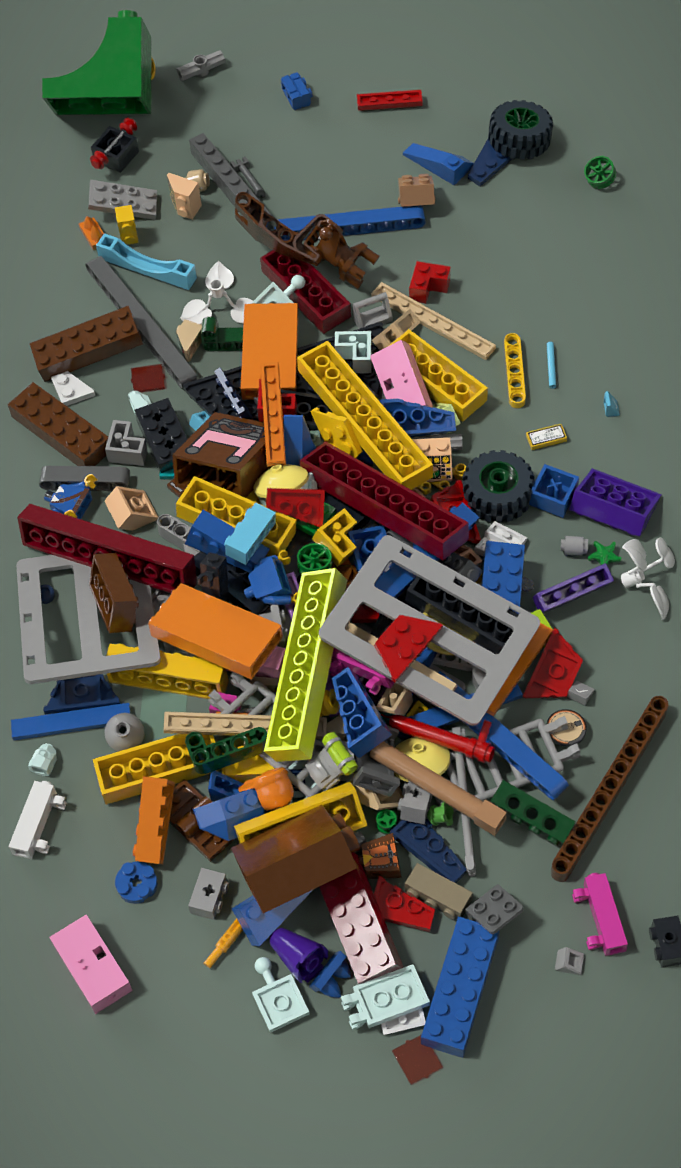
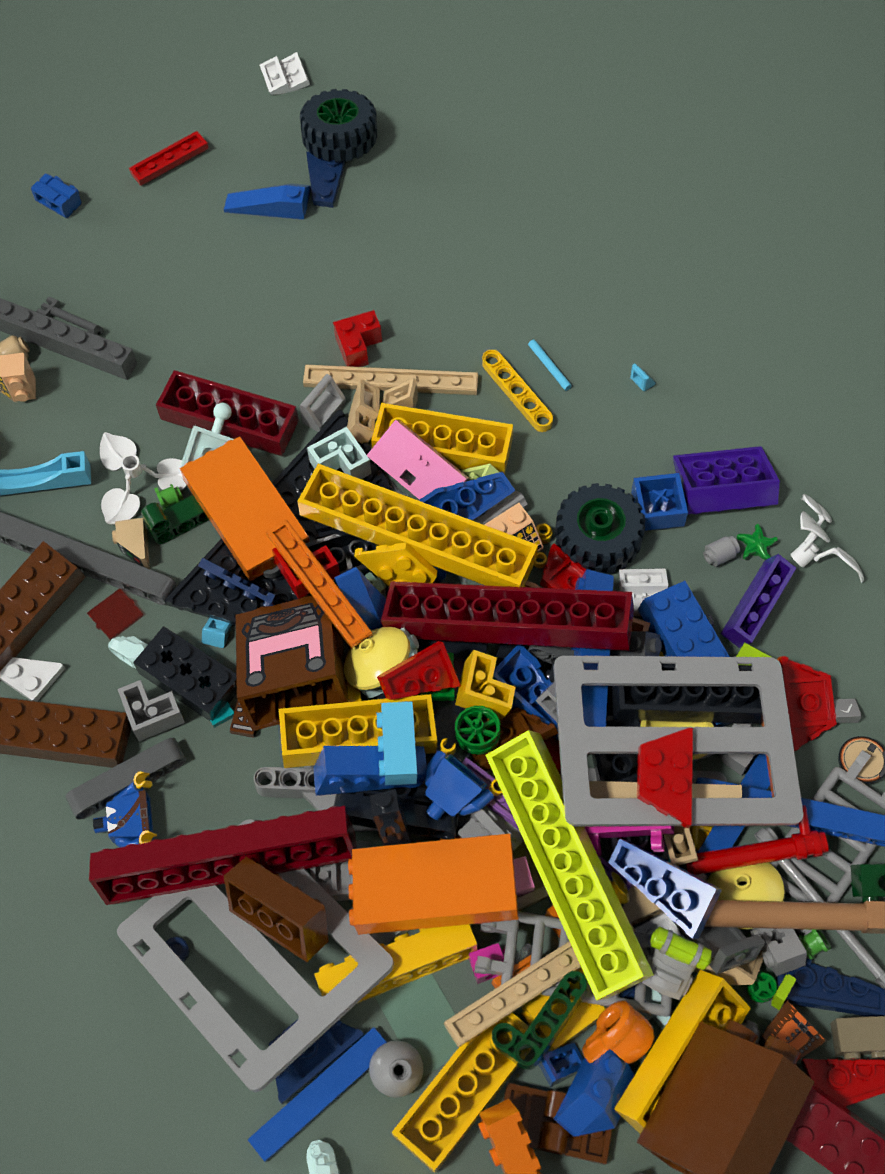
camera: 35 degrees left, 5 degrees up
(130, 508) = (207, 784): light nougat slope -> none
(230, 321) = (168, 496): none -> bright green brick
(330, 248) = (218, 361): reddish brown piece -> none
(366, 221) = (222, 317): blue beam -> none
(394, 825) = (783, 991): none -> lime tile
(416, 190) = (274, 244): medium nougat brick -> none
(432, 334) = (402, 394): none -> tan slope
(513, 78) = (284, 75): none -> white slope
(546, 437) = (602, 446): tile -> none
(600, 172) = (451, 133): green wheel -> none

